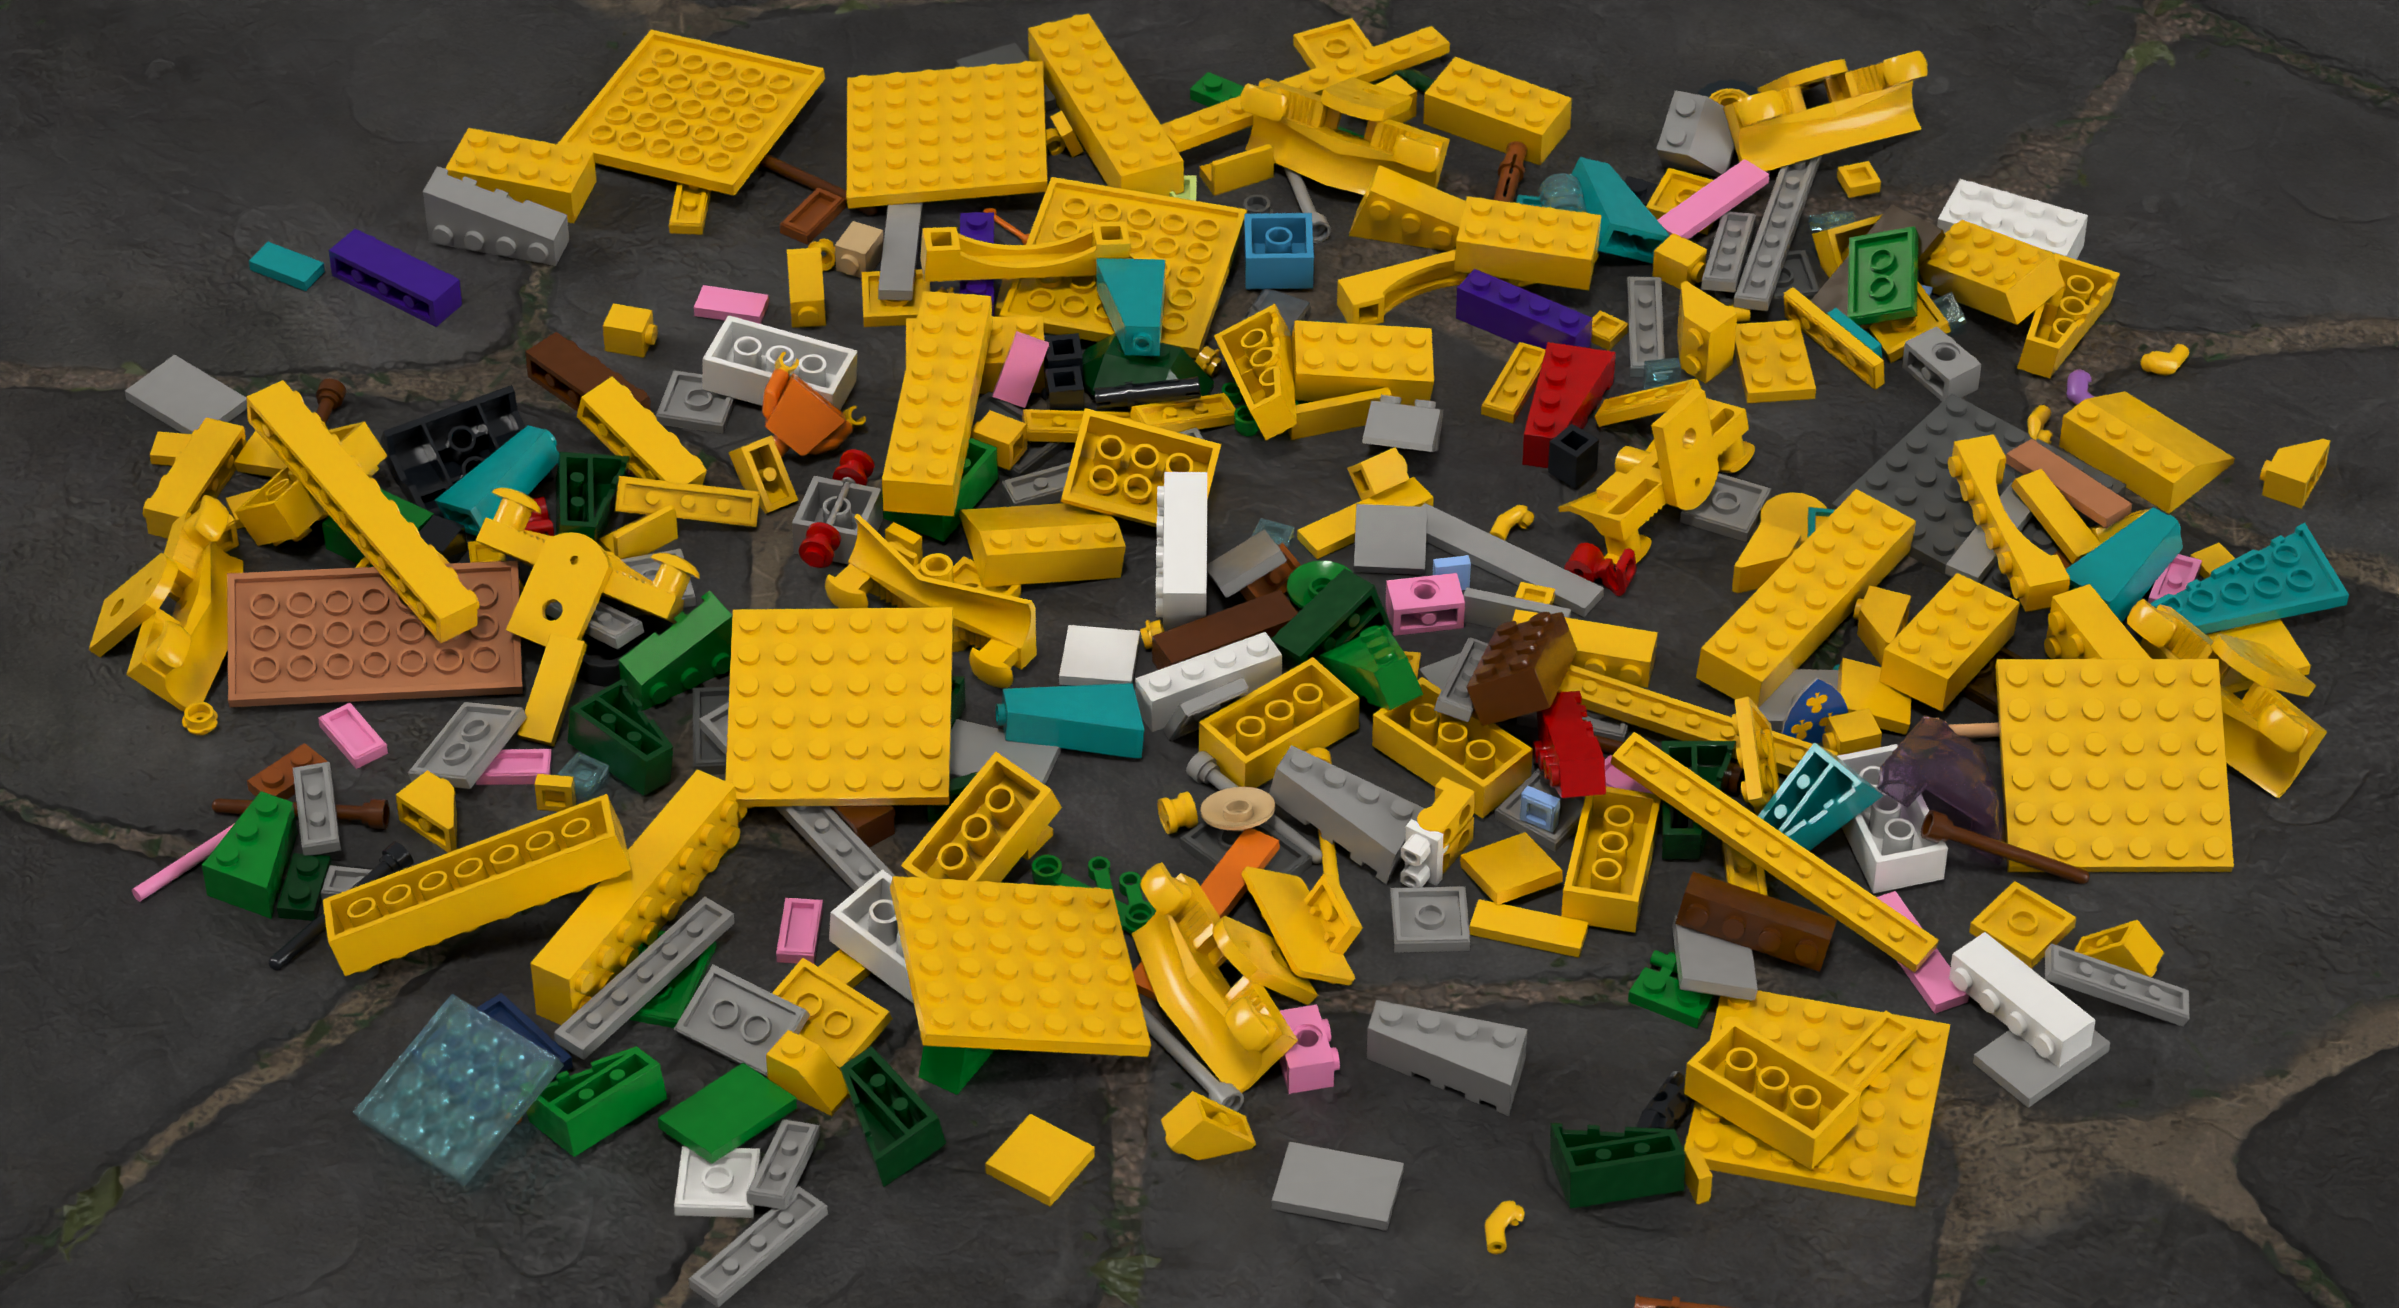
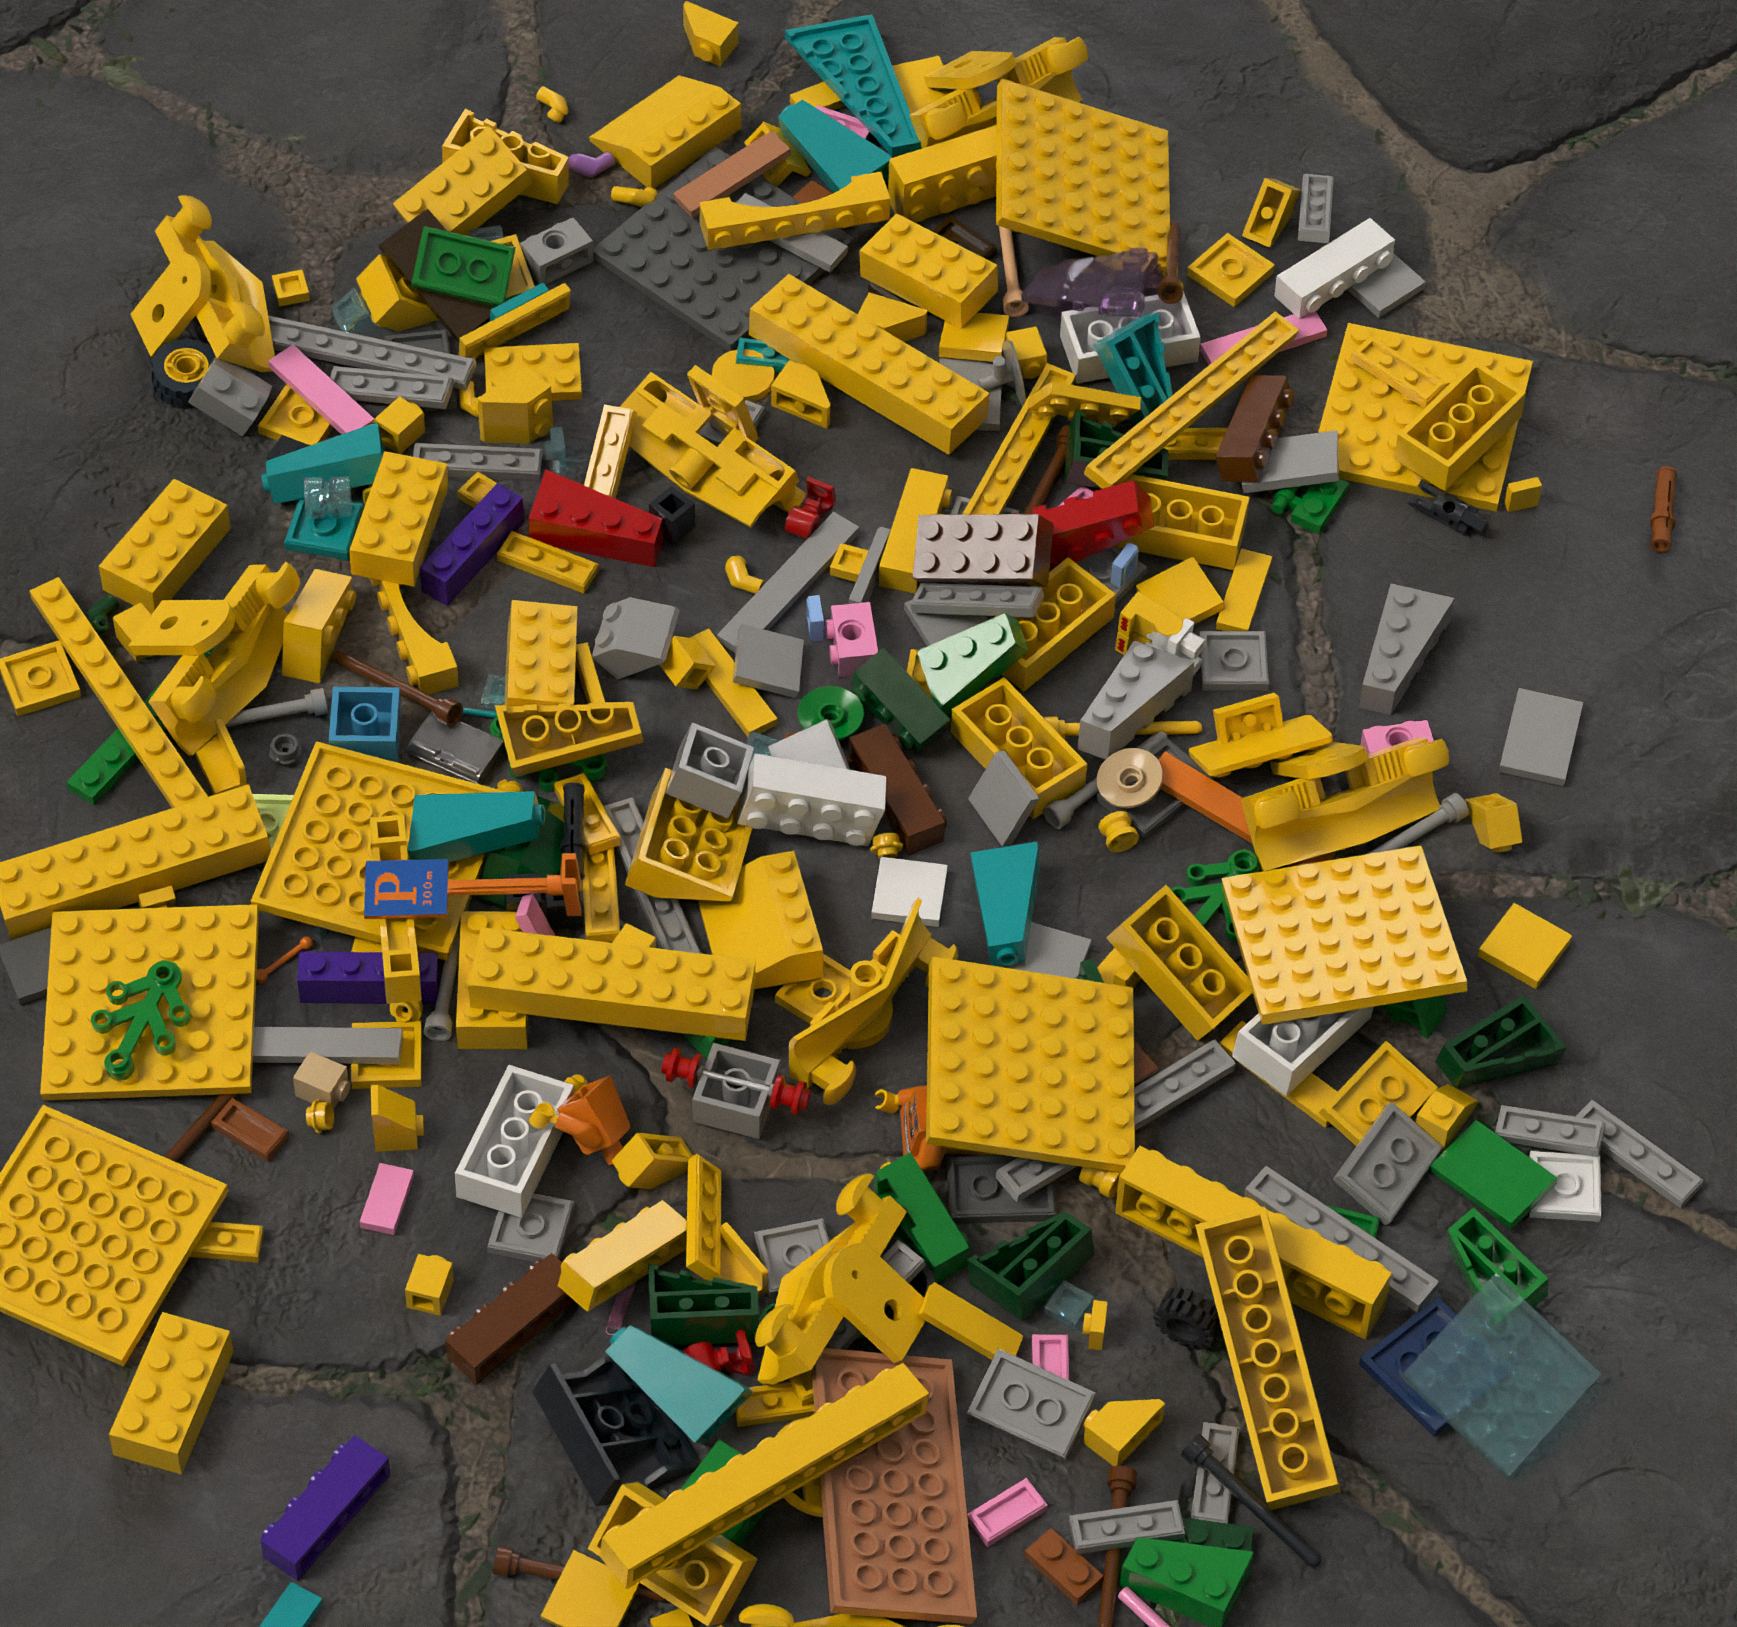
camera: 90 degrees left, 10 degrees up
(446, 537) = (744, 1432): black brick -> none
(492, 222) = (253, 1414): light grey wedge -> none
(799, 930) = (1260, 1127): bright pink tile -> none
(905, 539) = (765, 1039): yellow plate -> none
(952, 122) = (142, 1014): none -> green plant
(1044, 259) = (424, 886): none -> piece
(1165, 689) = (966, 816): white brick -> none
(1218, 452) = (710, 770): none -> light grey brick
(1301, 302) = (445, 710): none -> reddish brown piece
(1495, 1225) = (1575, 630): yellow arm -> none
(1513, 159) = (273, 550): dark orange pin -> none
(1616, 1165) = (1523, 544): dark green wedge -> none
(2016, 216) = (381, 175): white brick -> none
(2055, 514) = (772, 186): yellow tile -> none

